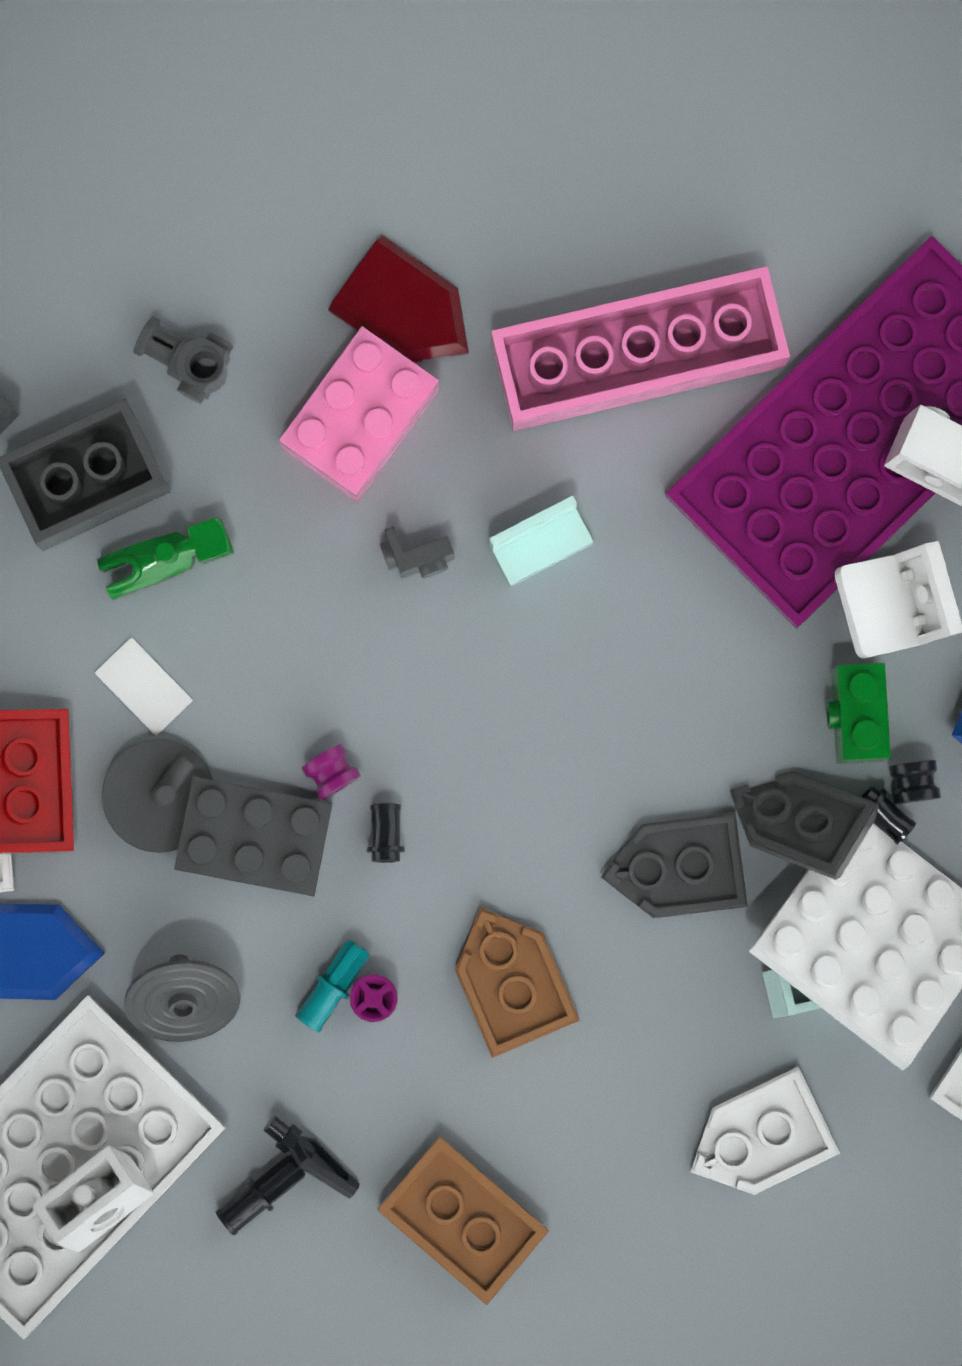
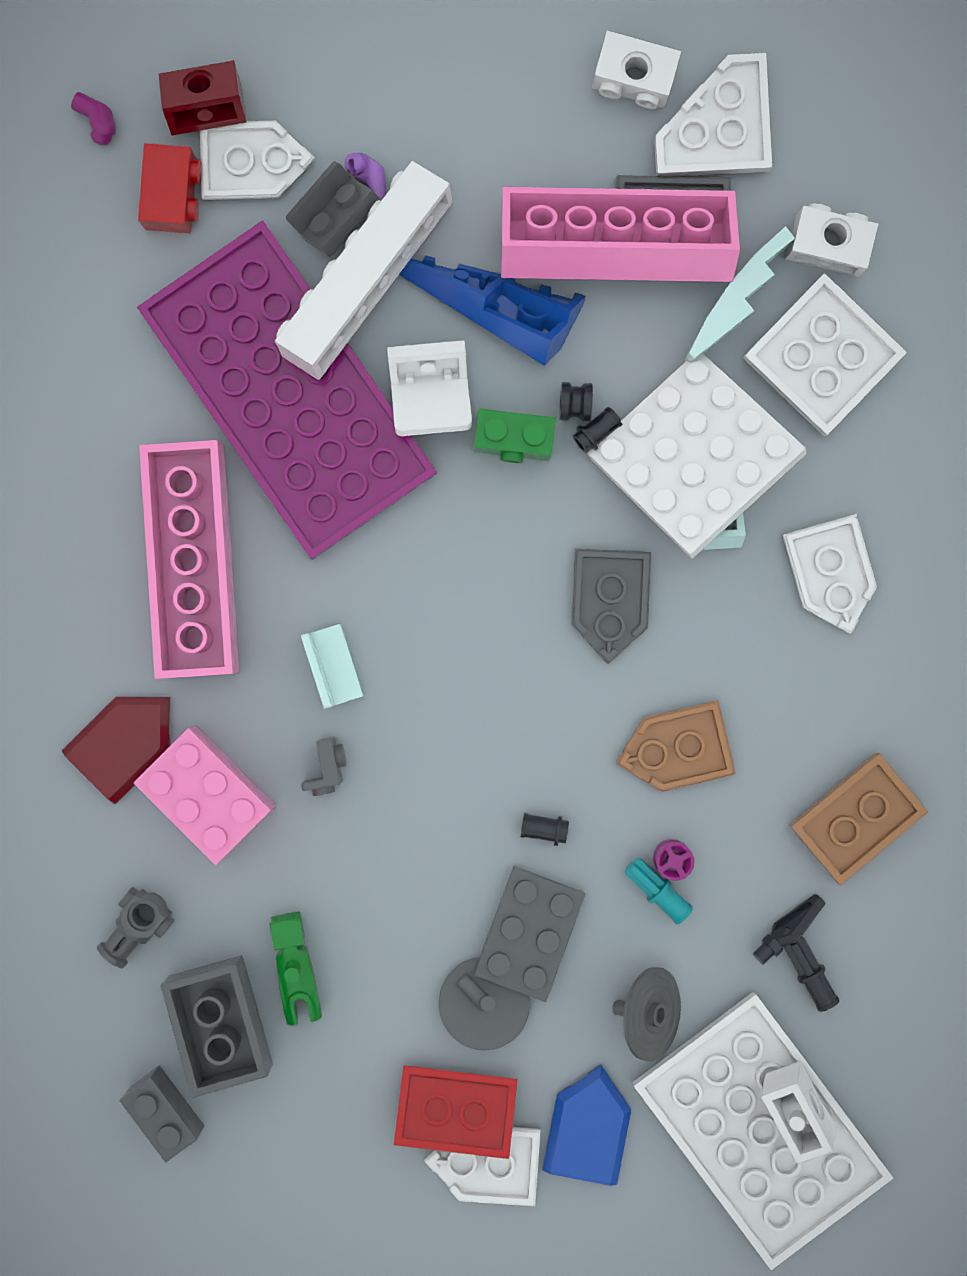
camera: 75 degrees left, 5 degrees up
(143, 686) = (394, 1000): white sticker -> none
(331, 772) = (489, 864): magenta wheel -> none
(805, 821) = (593, 495): dark grey tile -> none

